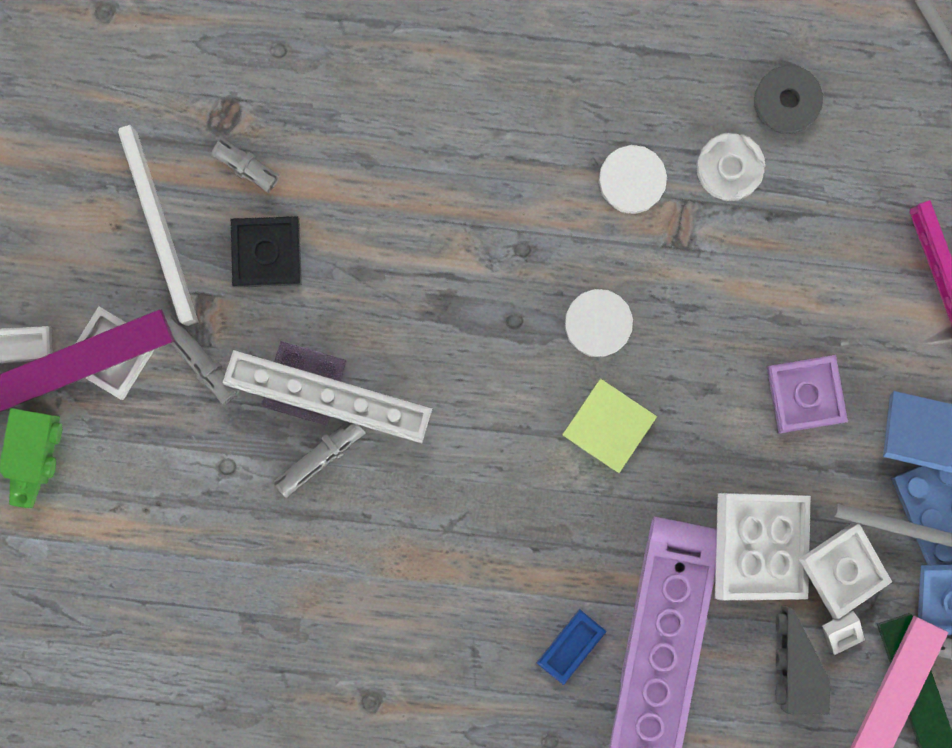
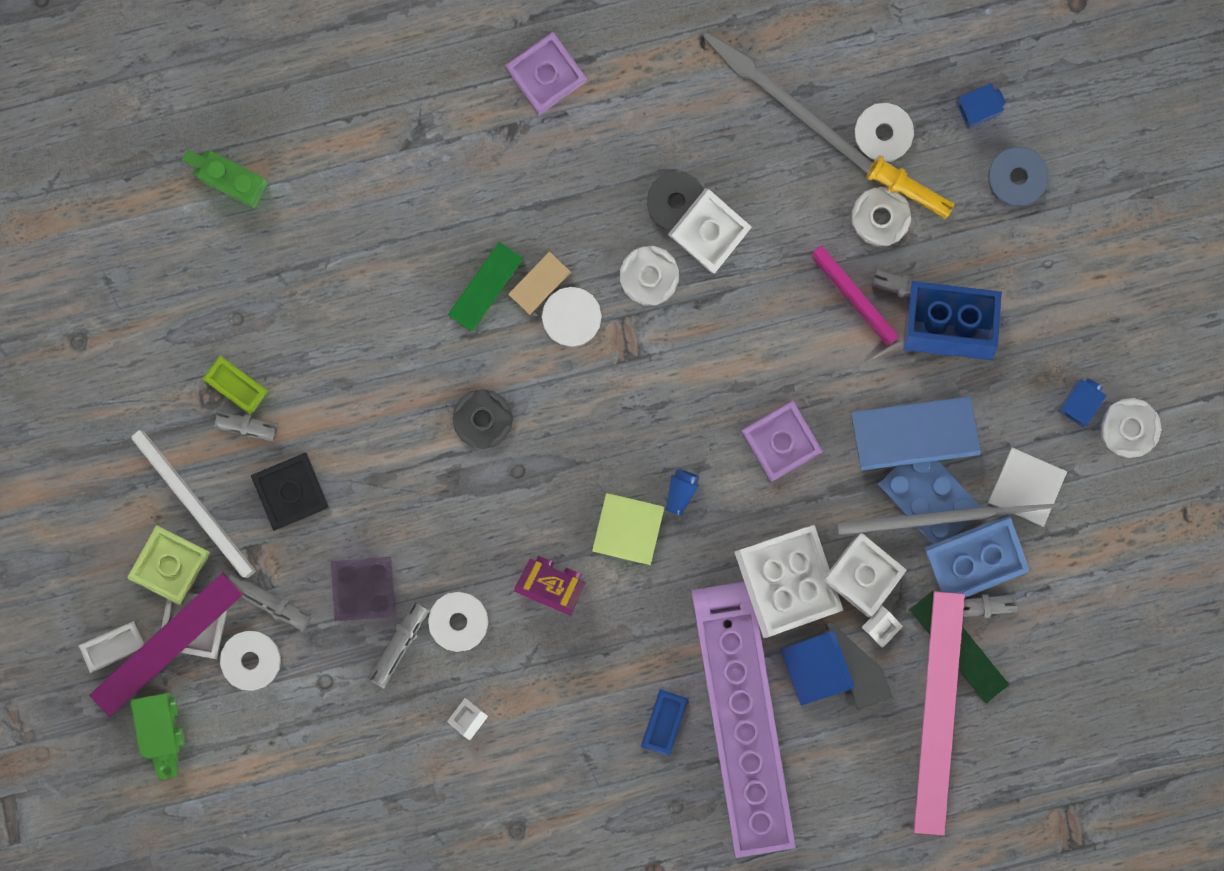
camera: 15 degrees left, 0 degrees up
(107, 281) = (168, 565): none -> yellowish green tile
(136, 410) = (232, 663): none -> white tile
(251, 118) = (235, 385): none -> lime tile
(327, 396) = (387, 592): white tile -> none
(362, 564) = (467, 719): none -> white plate
(385, 476) = (440, 621): none -> white tile
(504, 232) = (482, 401): none -> dark grey tile
(505, 455) = (549, 586): none -> magenta slope
(553, 113) = (485, 287): none -> green tile
(598, 323) = (587, 447): white tile -> none
(611, 131) = (539, 283): none -> tan tile
(681, 406) = (681, 490): none -> blue cone
(758, 651) = (817, 668): none -> blue tile
(814, 141) = (709, 230): none -> white plate

